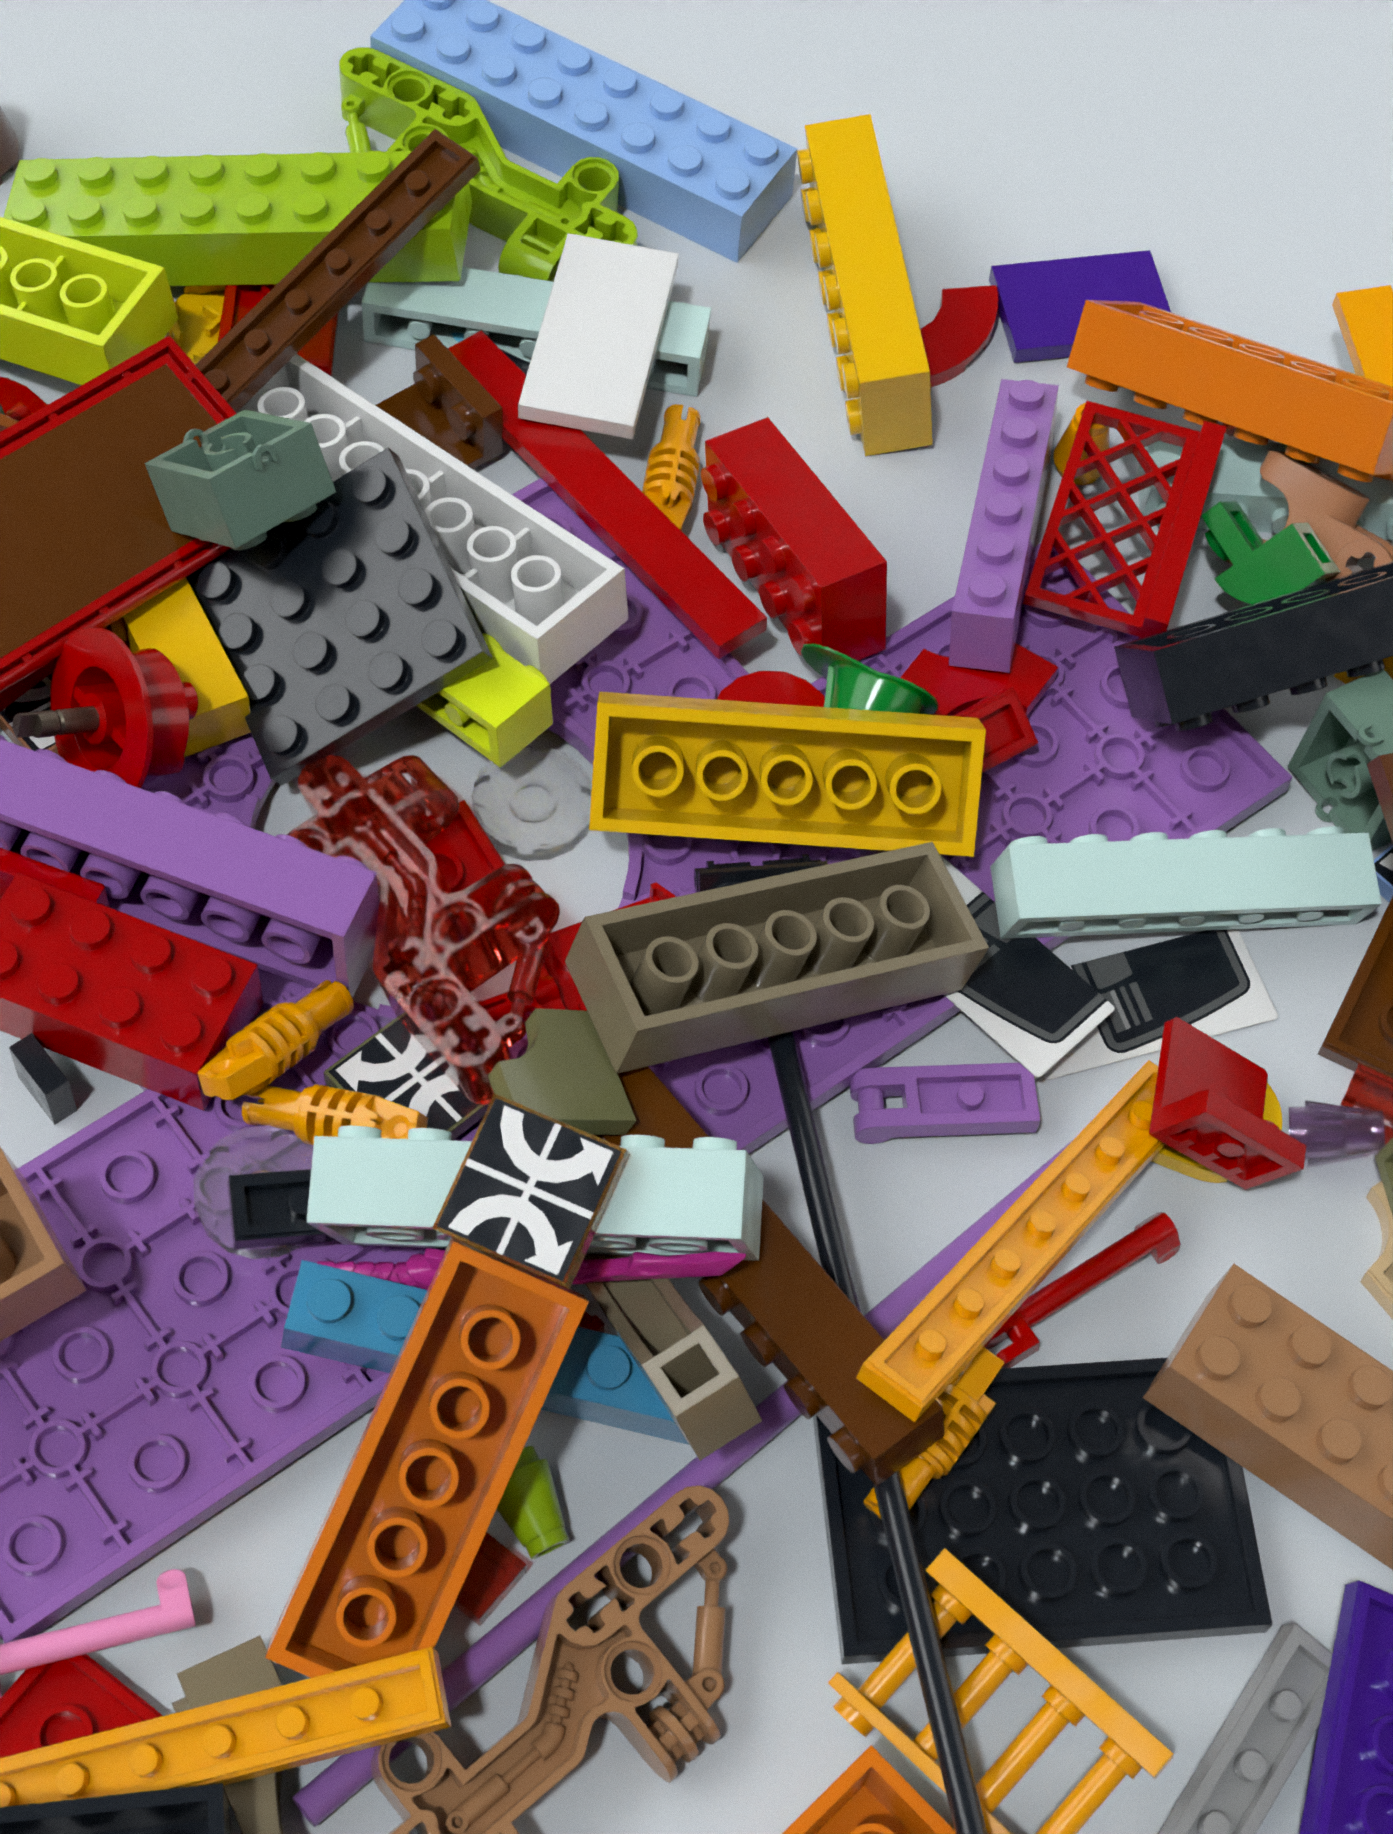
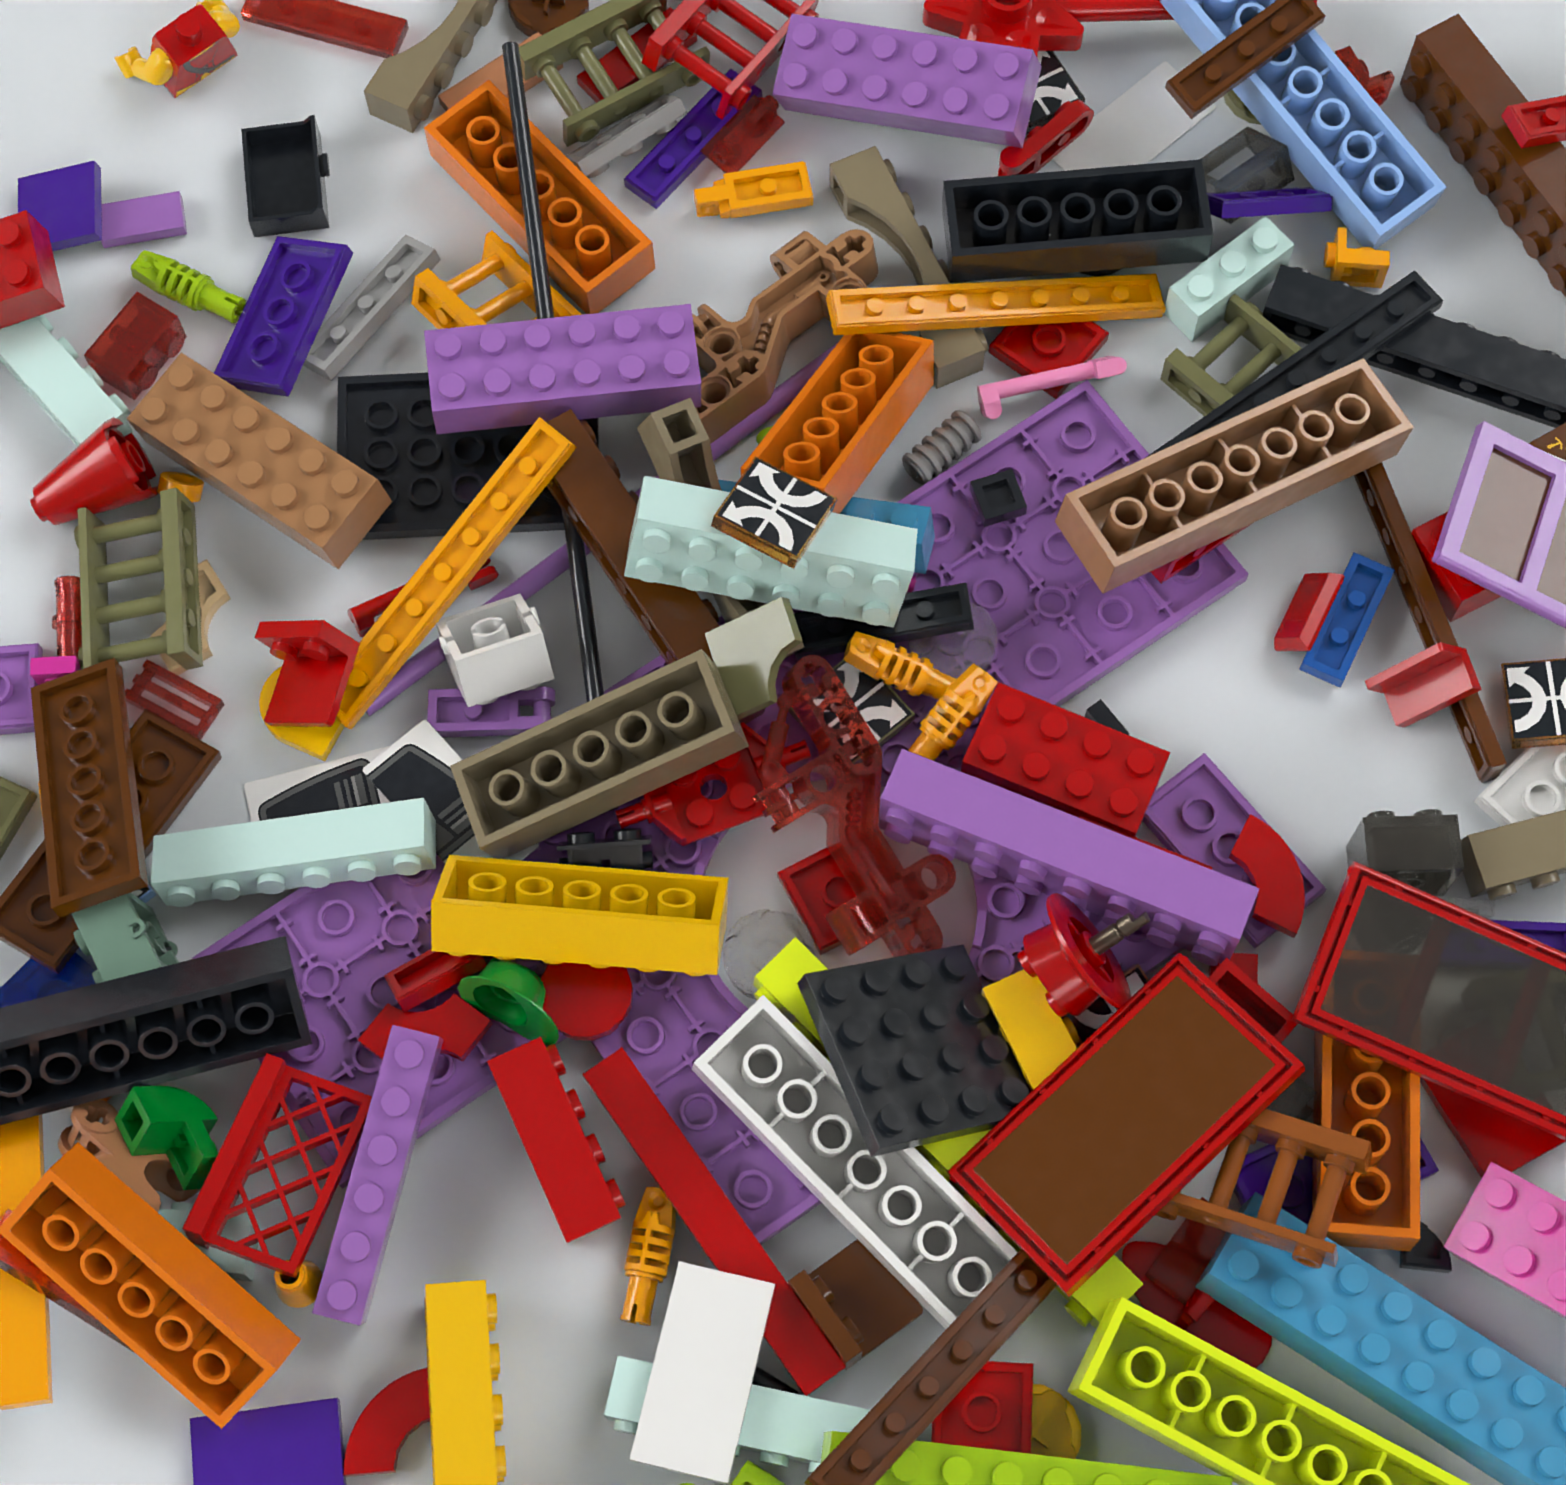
camera: 170 degrees left, 10 degrees up
(174, 1405) = (998, 497): none -> black plate
(241, 479) = (996, 1122): sand green brick -> none
(261, 1523) = (942, 447): none -> light grey piece
(895, 1549) = (550, 365): none -> medium lavender brick
(950, 1148) = (495, 650): none -> white brick
(1335, 1130) = (227, 680): clear purple cone -> none

